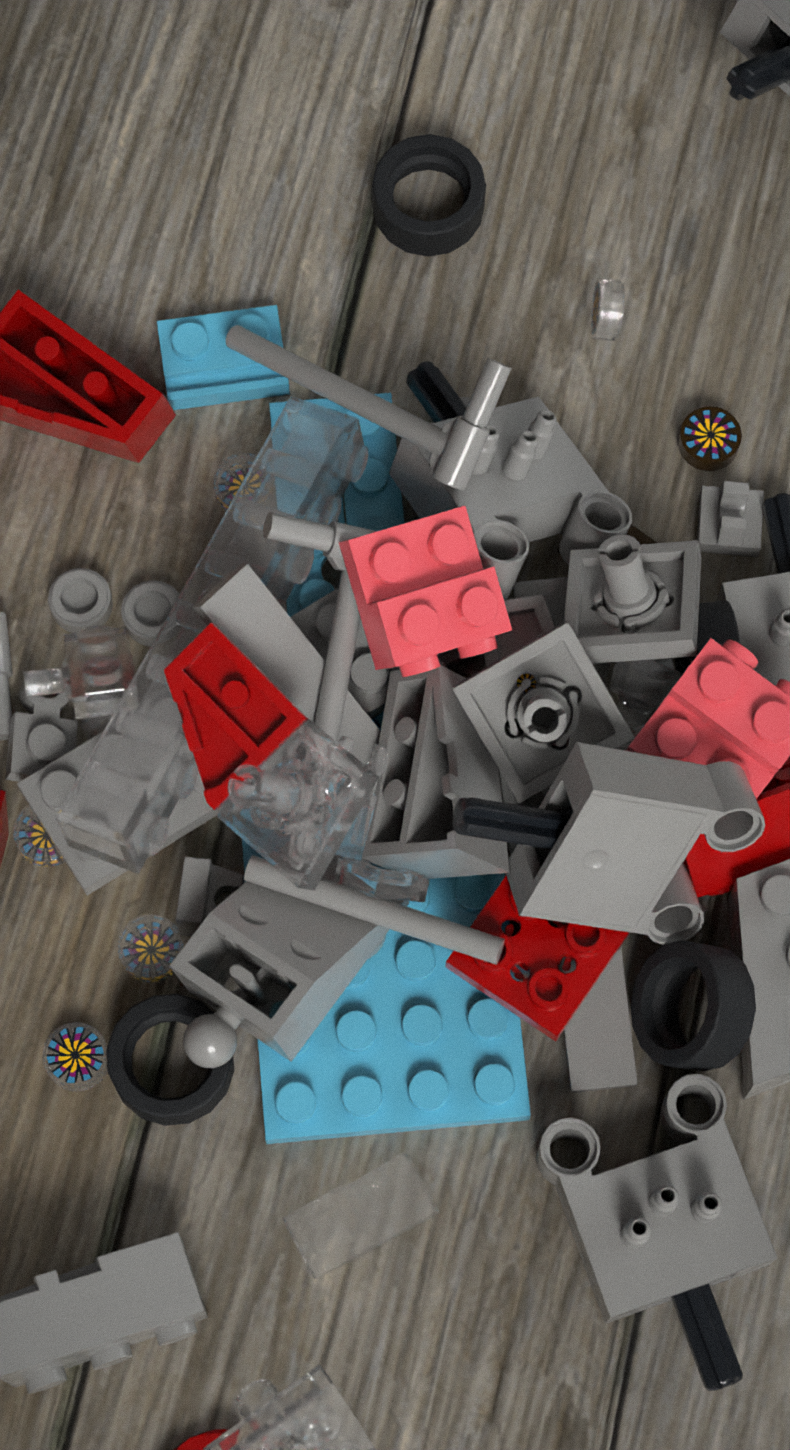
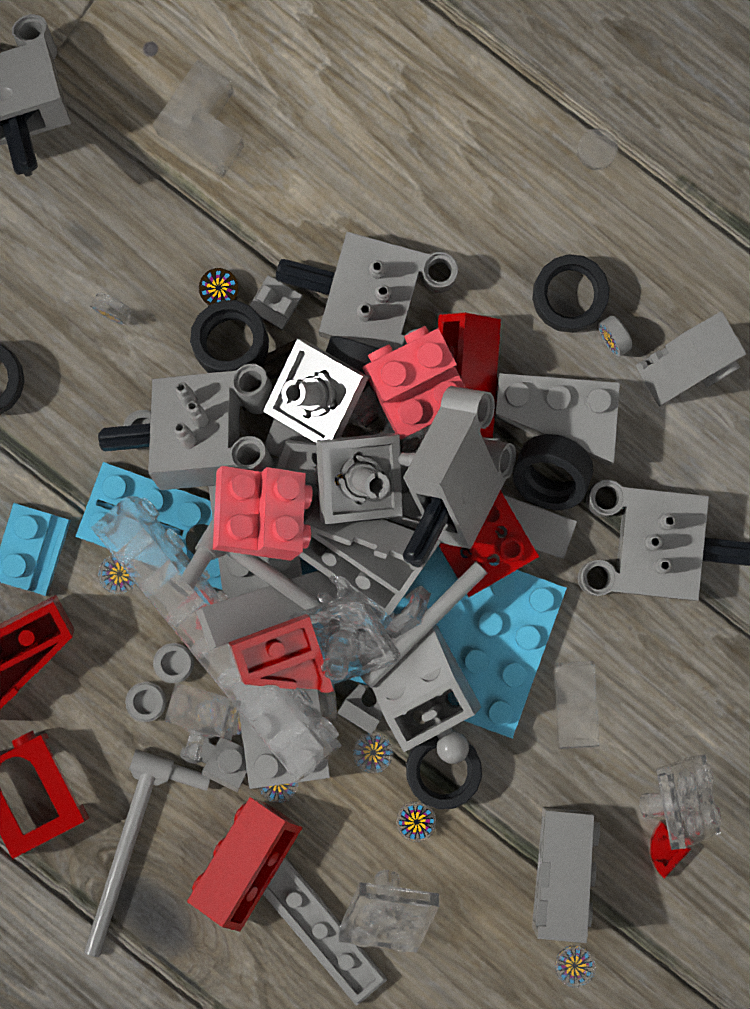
camera: 65 degrees left, 15 degrees up
(197, 840) = (328, 705): none -> clear tile
(453, 448) = (179, 453): light grey bar -> none
(667, 445) = (220, 313): none -> black tyre

